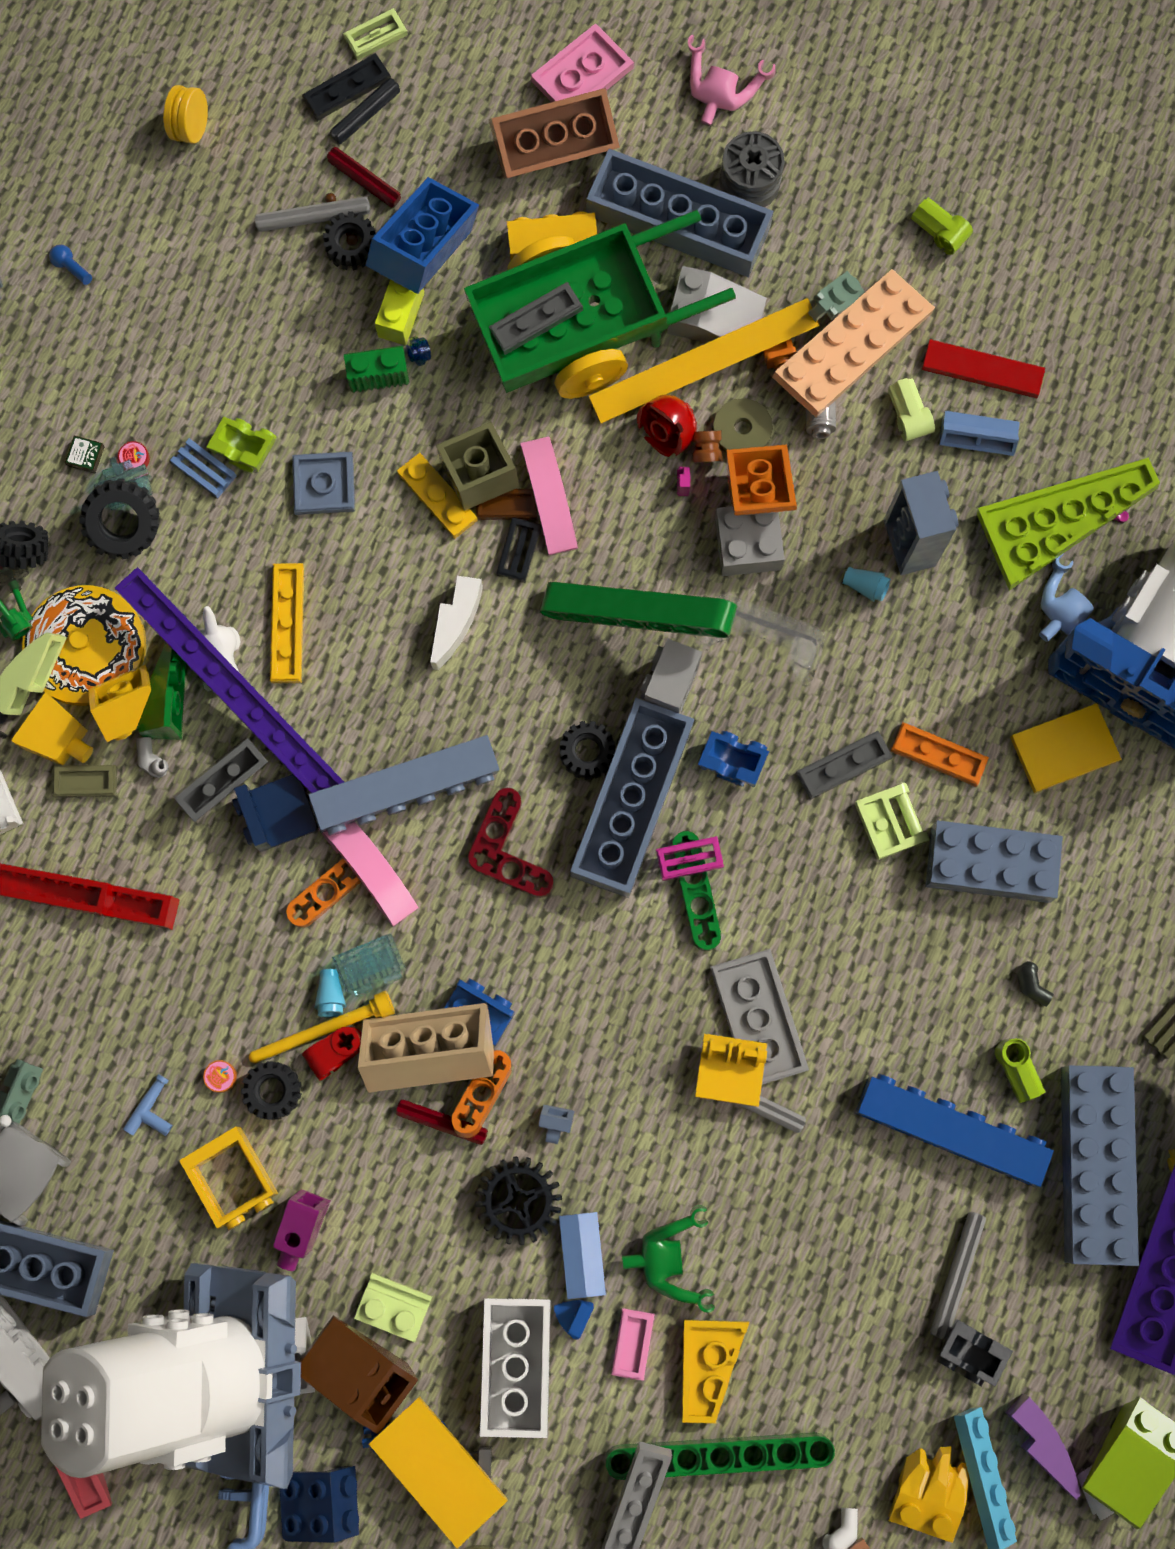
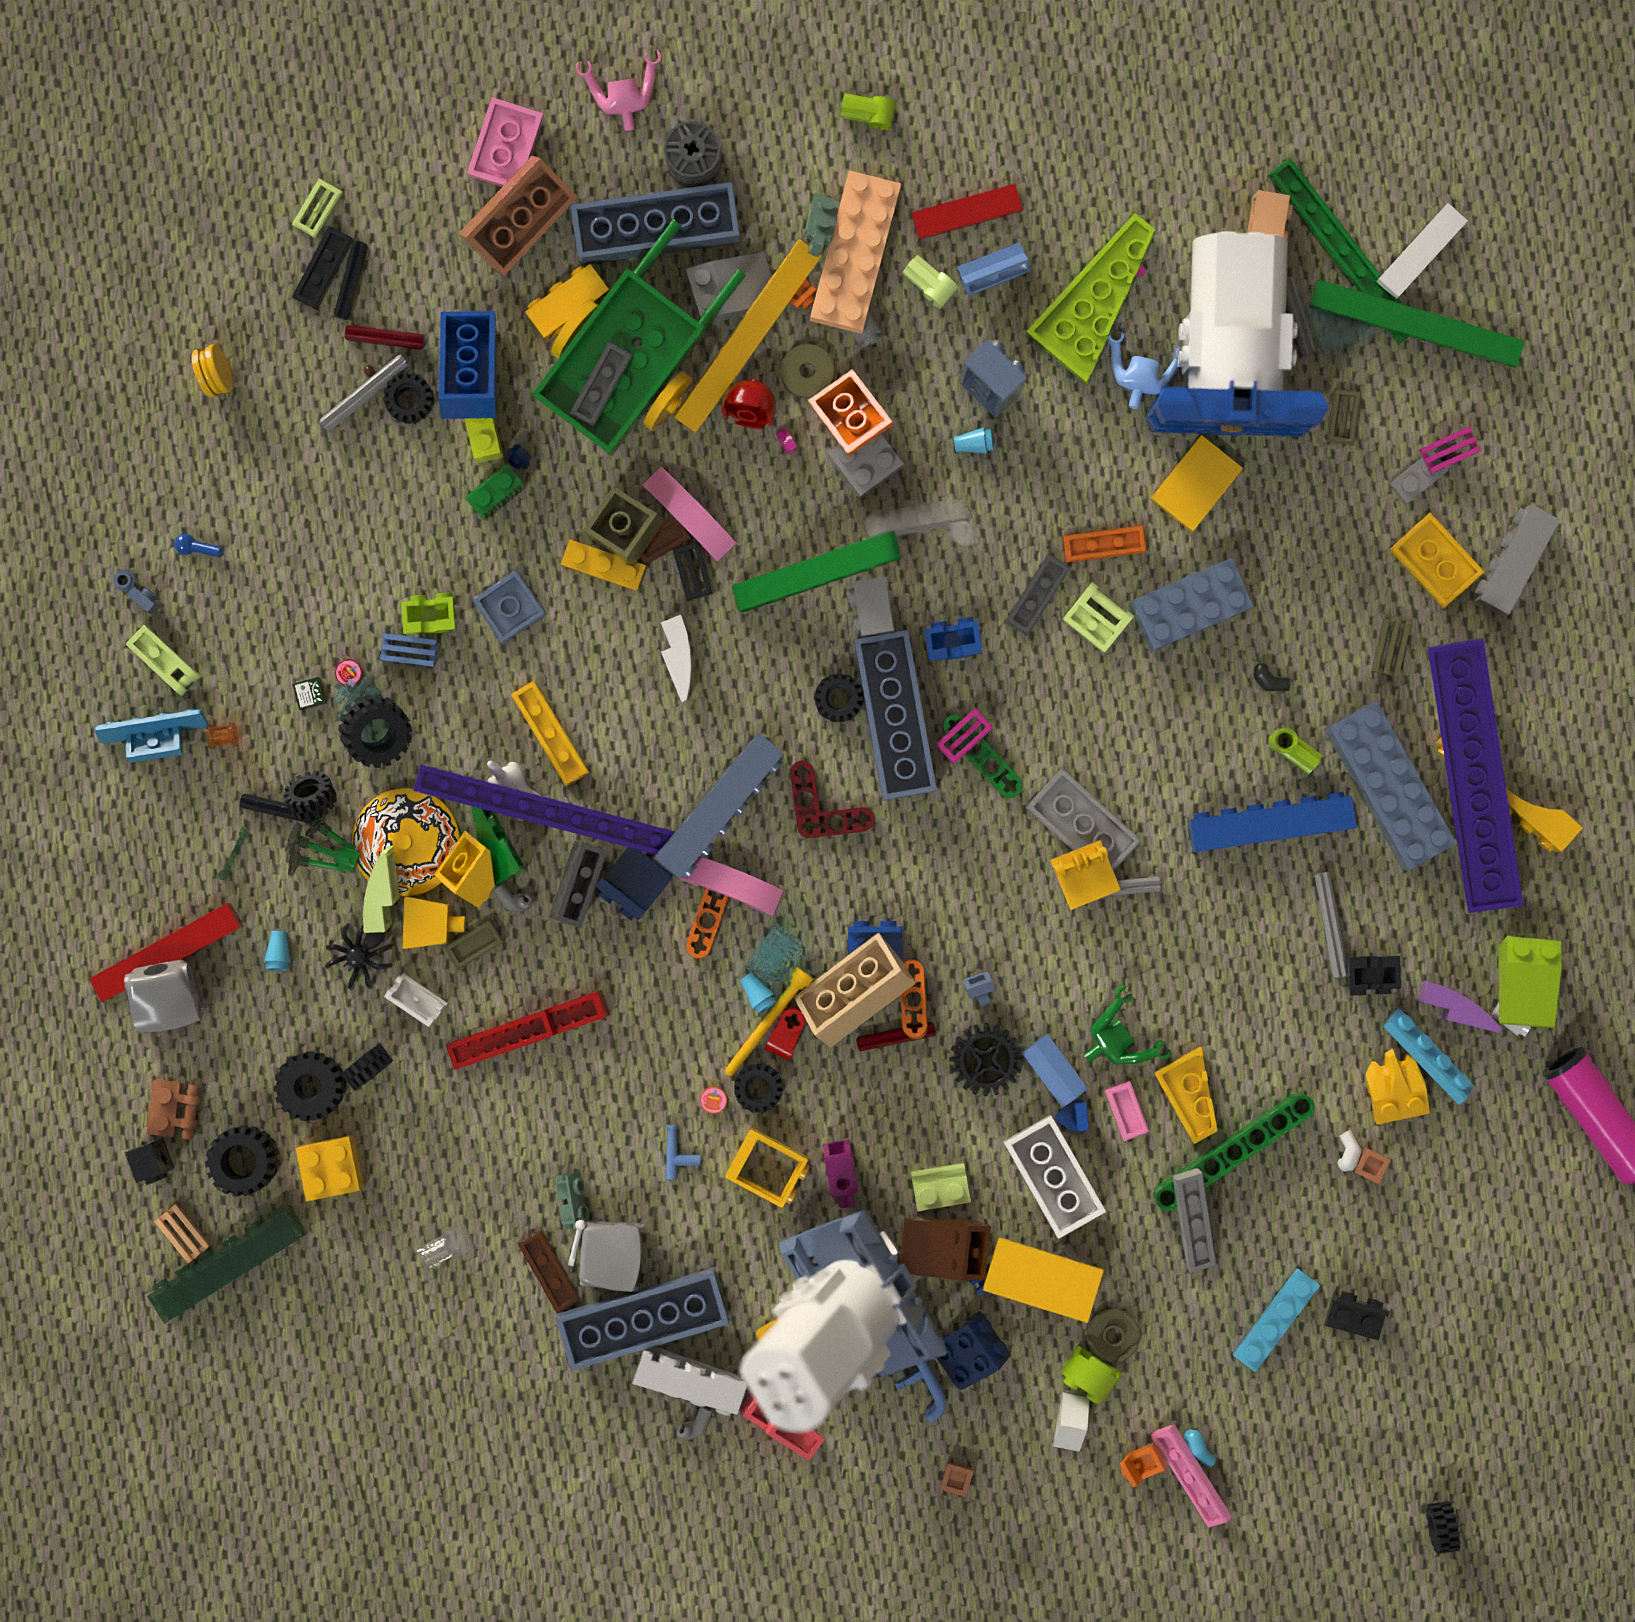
camera: 30 degrees left, 10 degrees up
(707, 446) = (790, 405): dark orange wheel -> none

